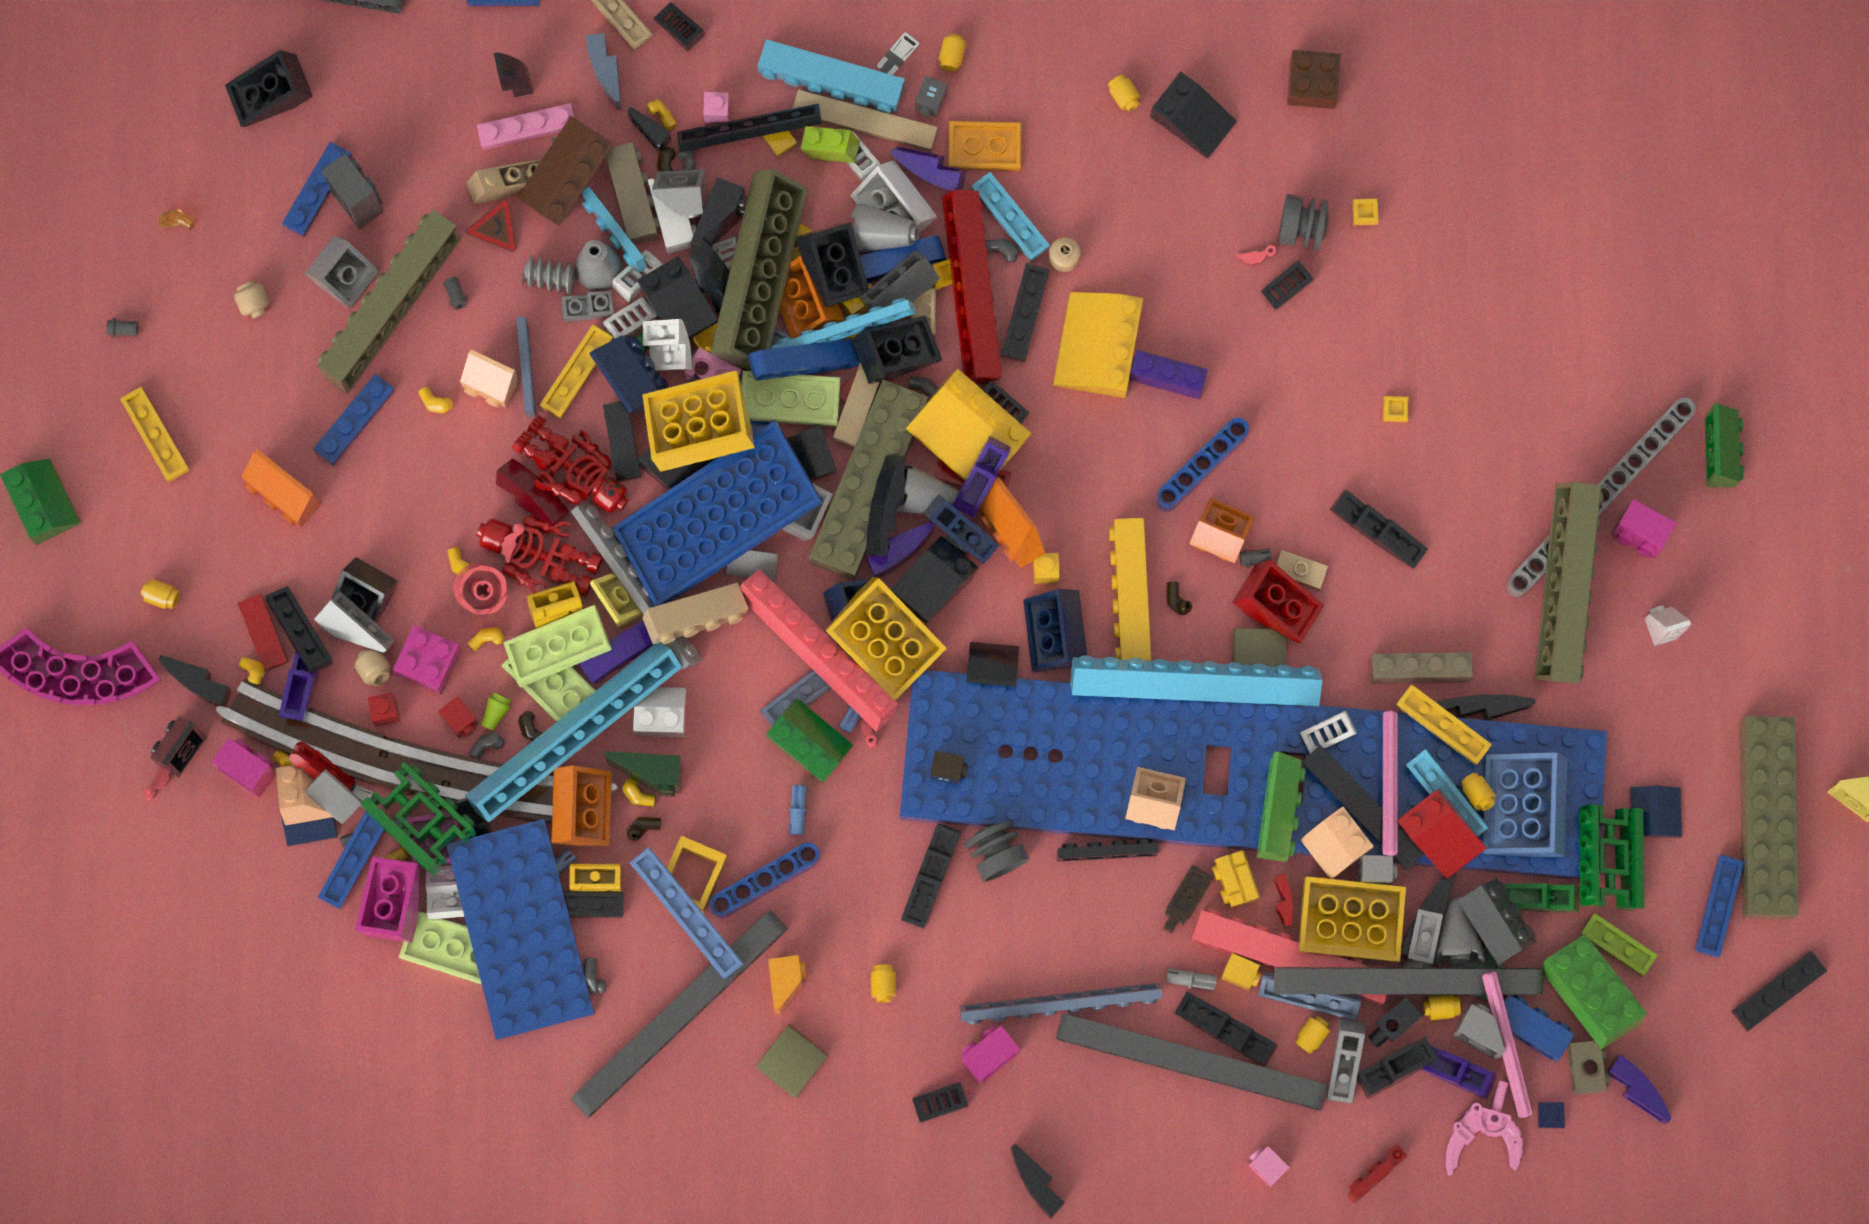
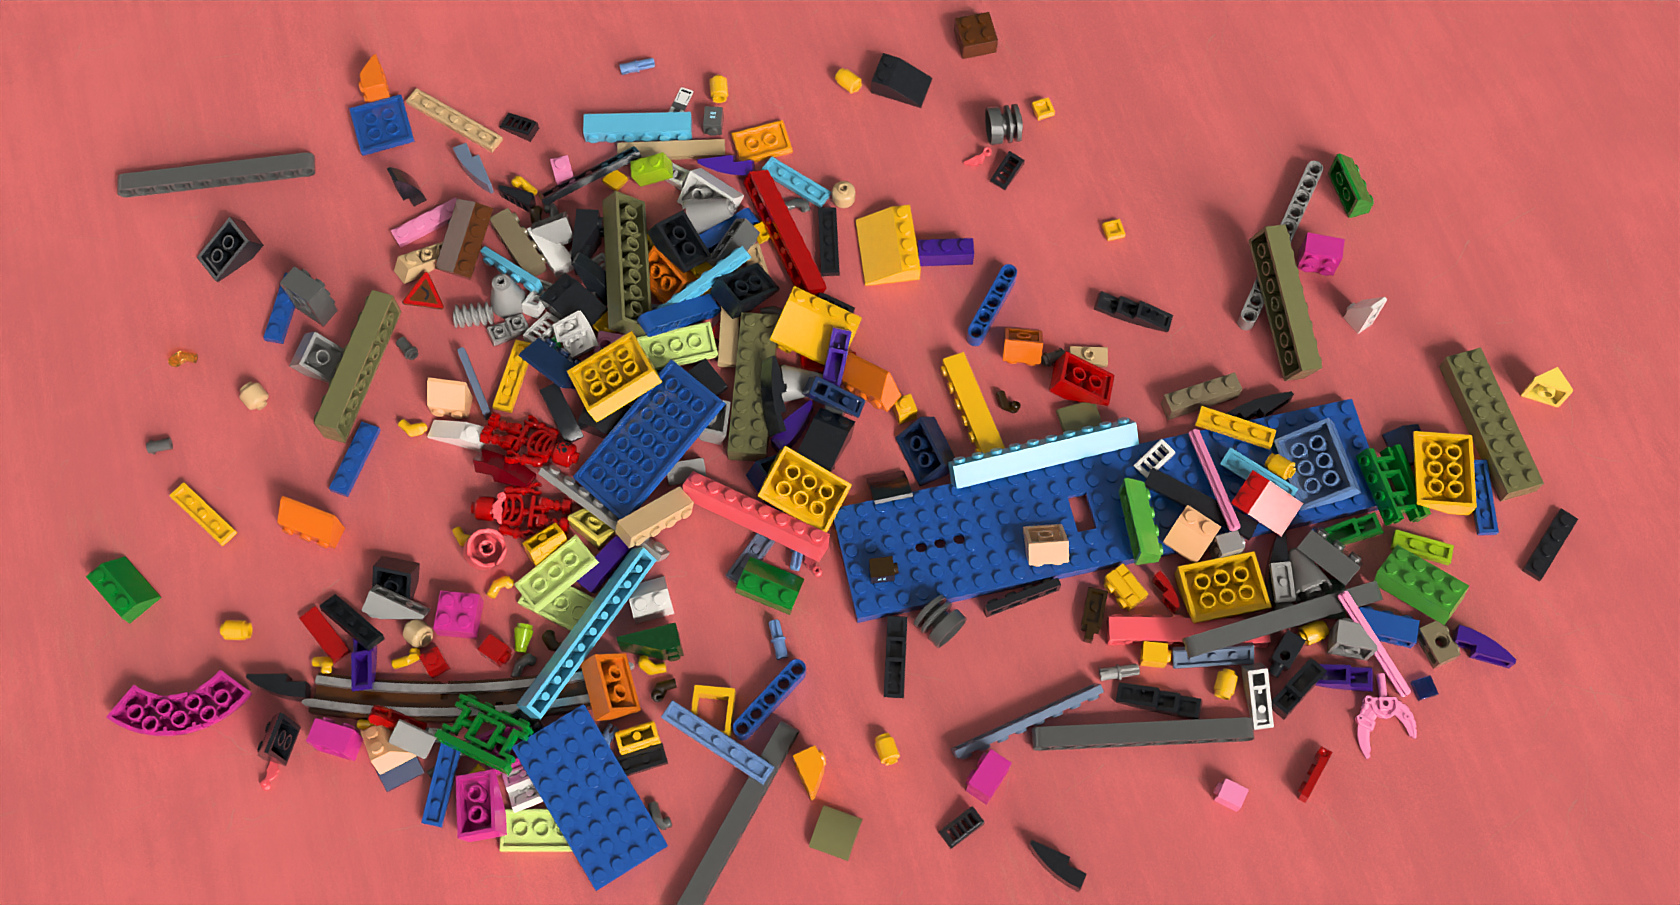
camera: 15 degrees left, 10 degrees down
(352, 695) = (407, 660): none -> yellow arm
(486, 426) = (457, 433): none -> white slope
(1681, 861) = (1444, 472): none -> yellow slope

